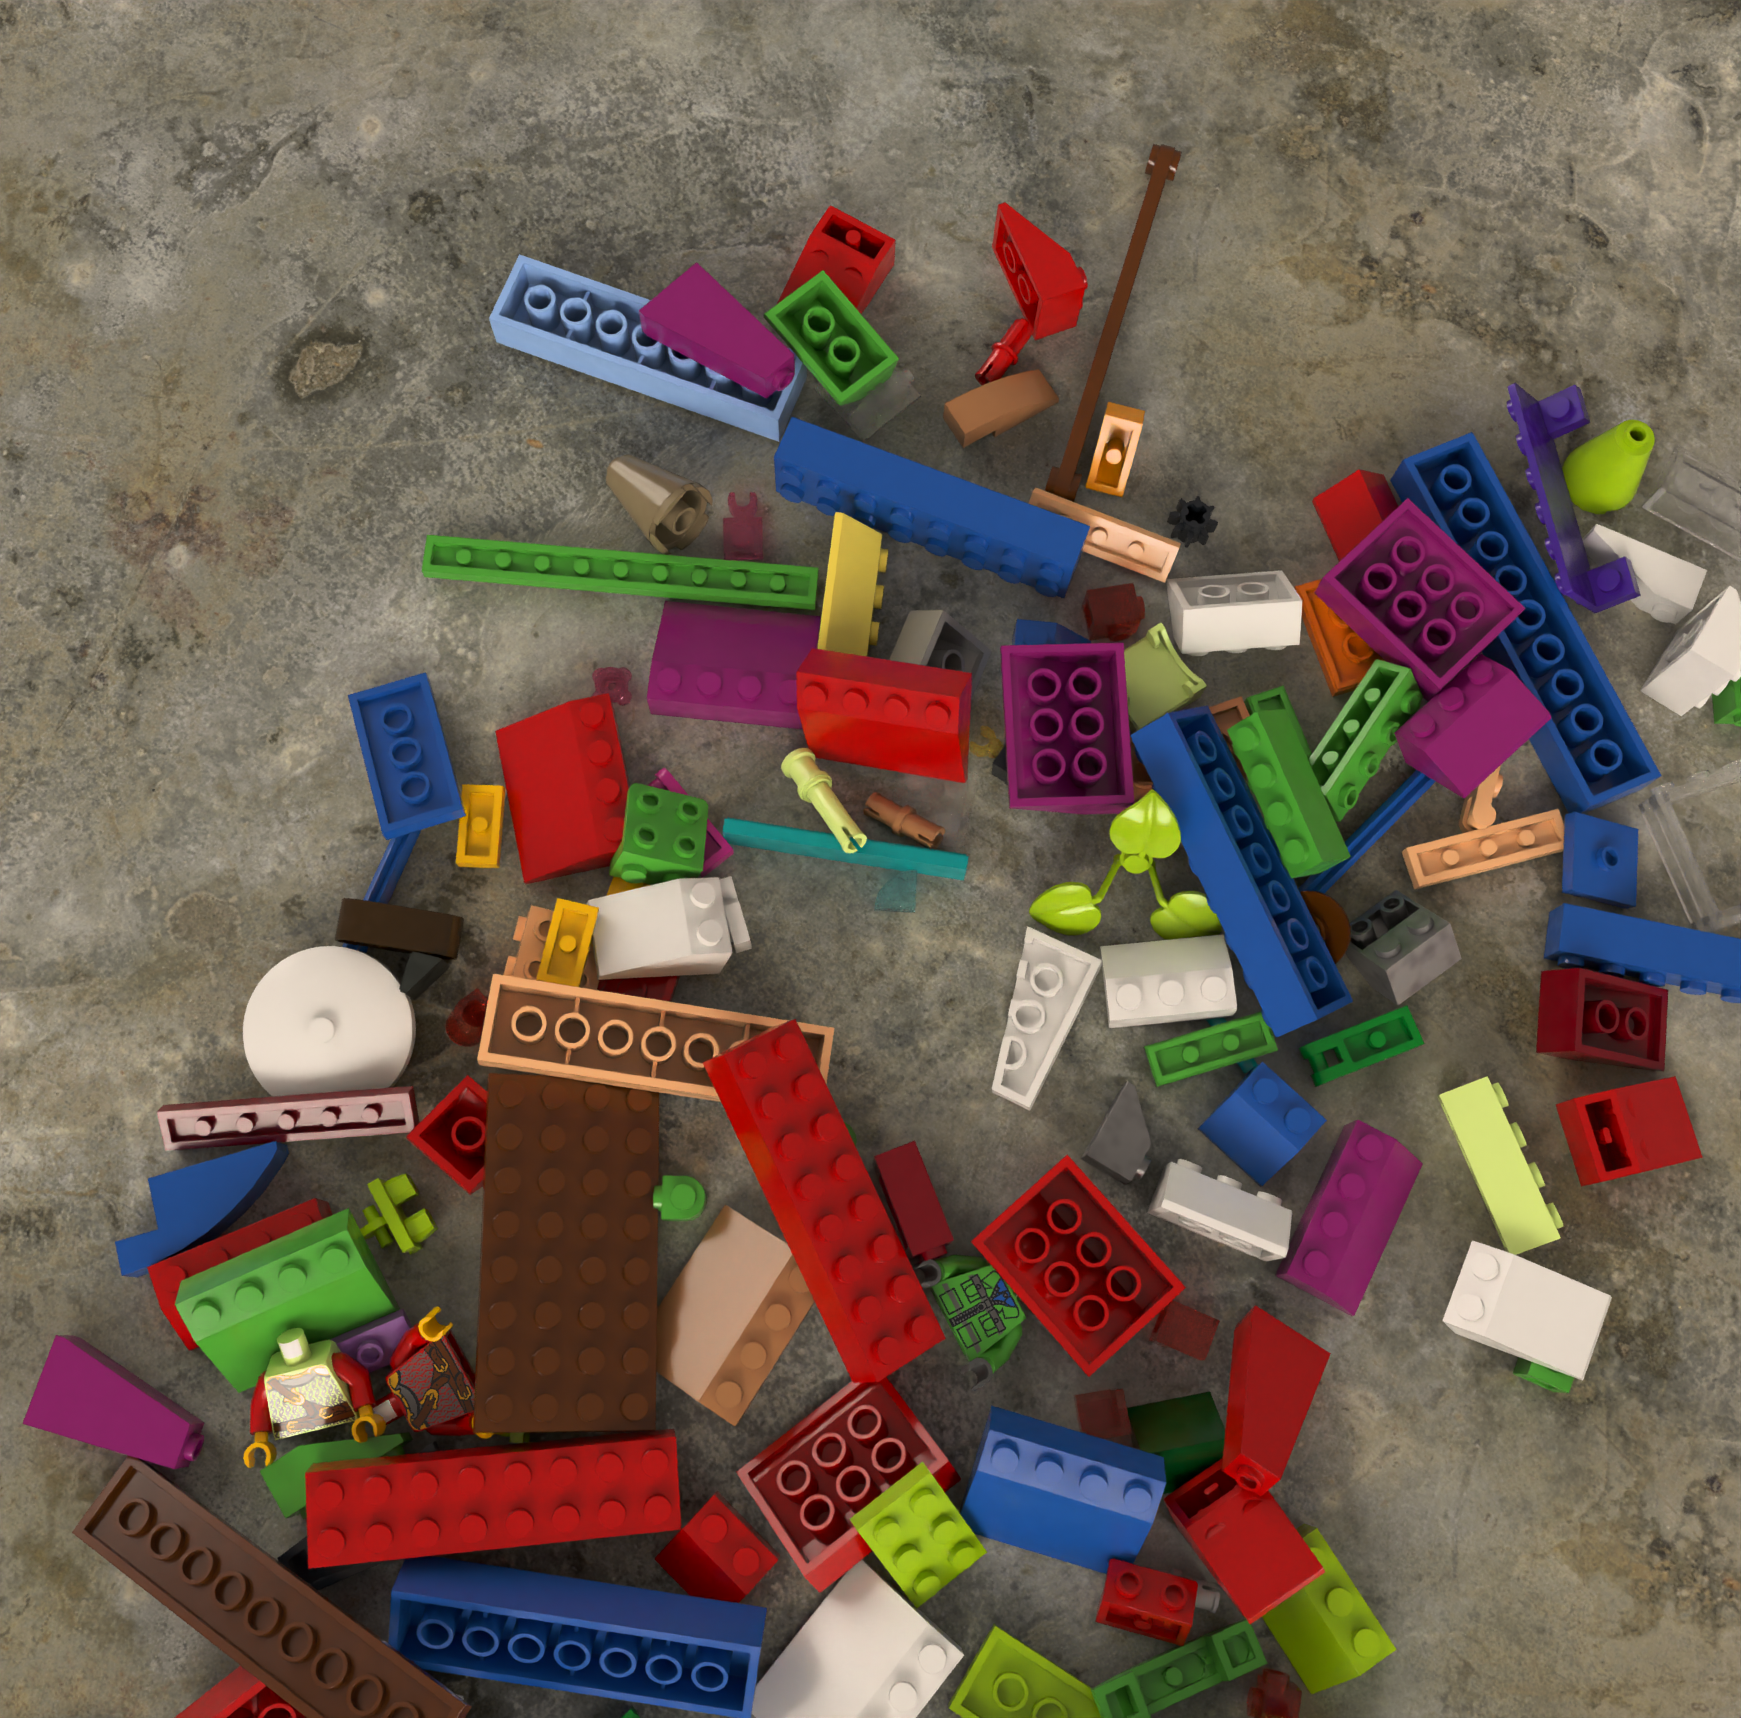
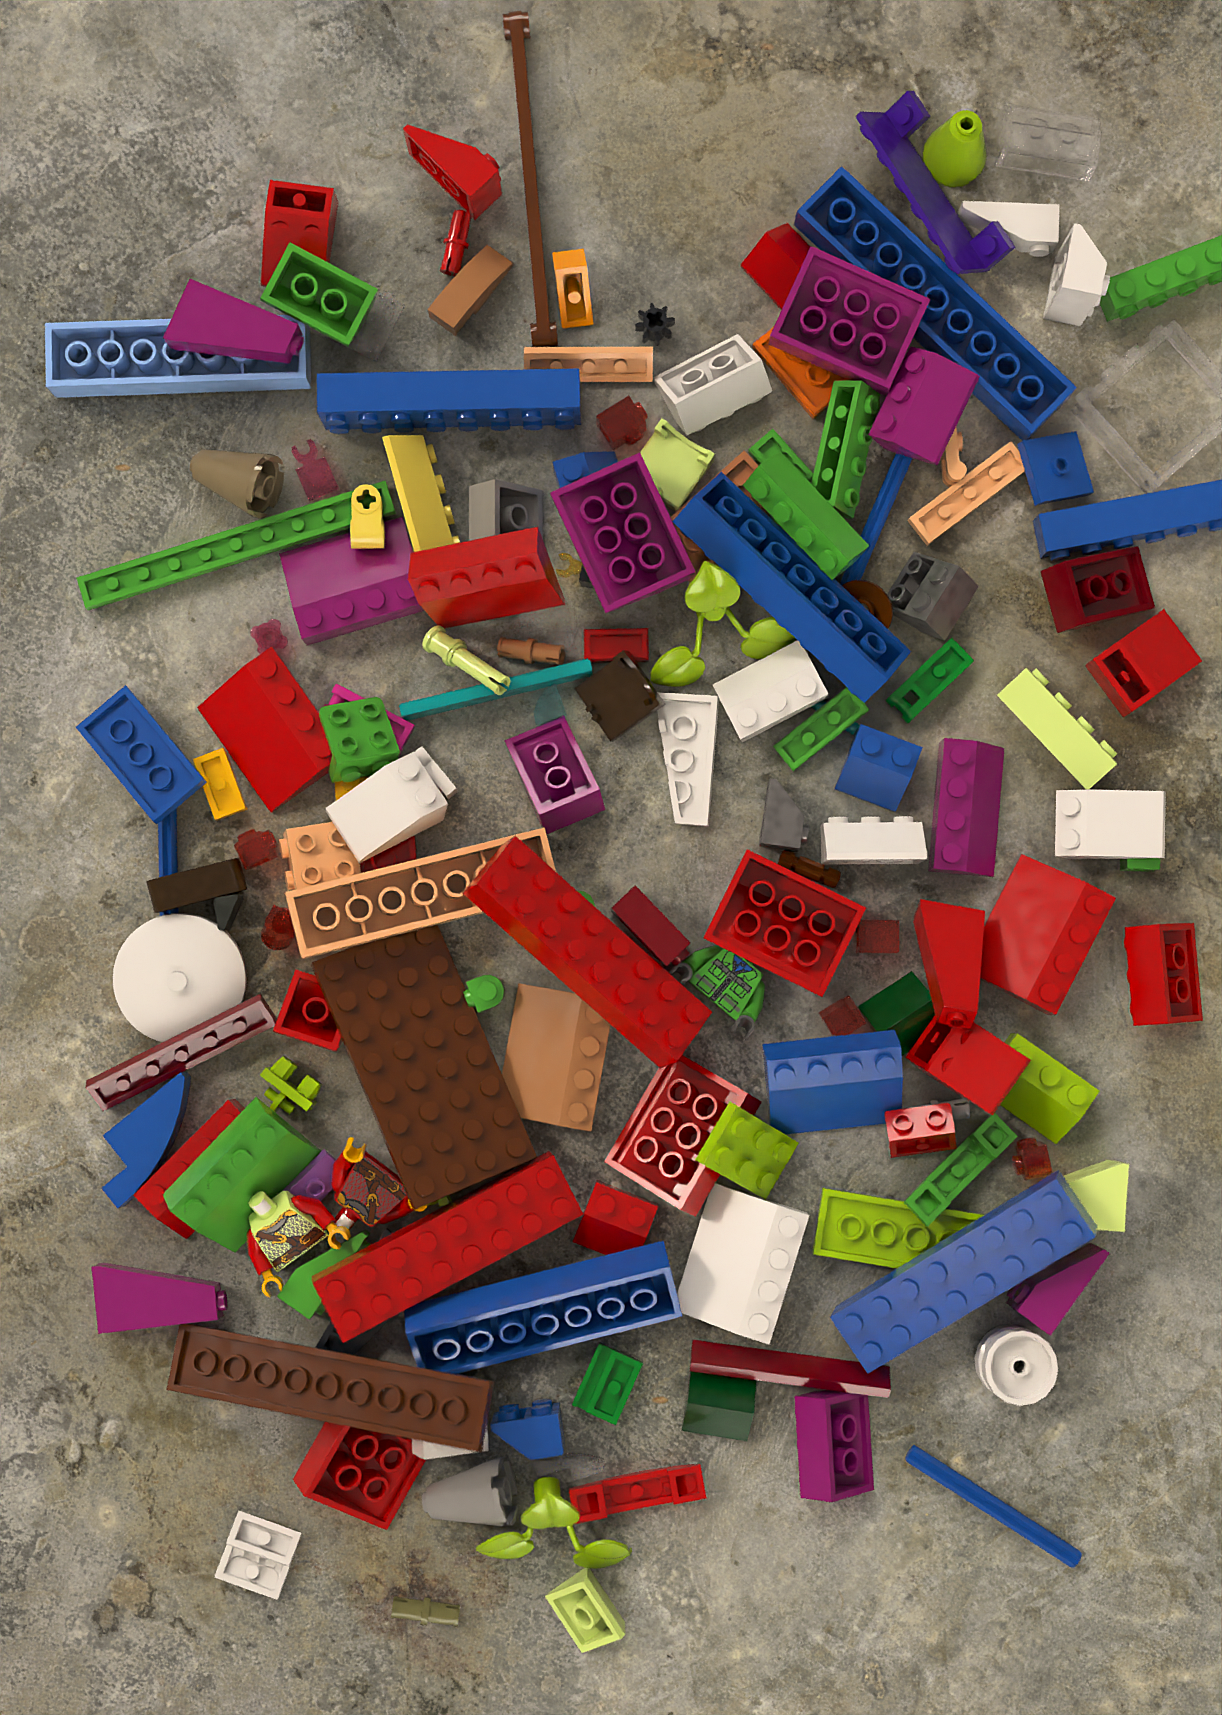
camera: 15 degrees left, 10 degrees up
(488, 916) = (256, 848): none -> clear red plate
(568, 943) = (326, 847): yellow plate -> none
(776, 602) = (367, 524): none -> light yellow piece
(873, 975) = (555, 775): none -> magenta slope
(986, 914) = (619, 696): none -> dark brown piece
(1006, 856) = (604, 644): none -> red tile
(1134, 1213) = (809, 868): none -> reddish brown axle
(1390, 1413) = (1041, 933): none -> red slope
(1525, 1528) = (1163, 974): none -> red slope

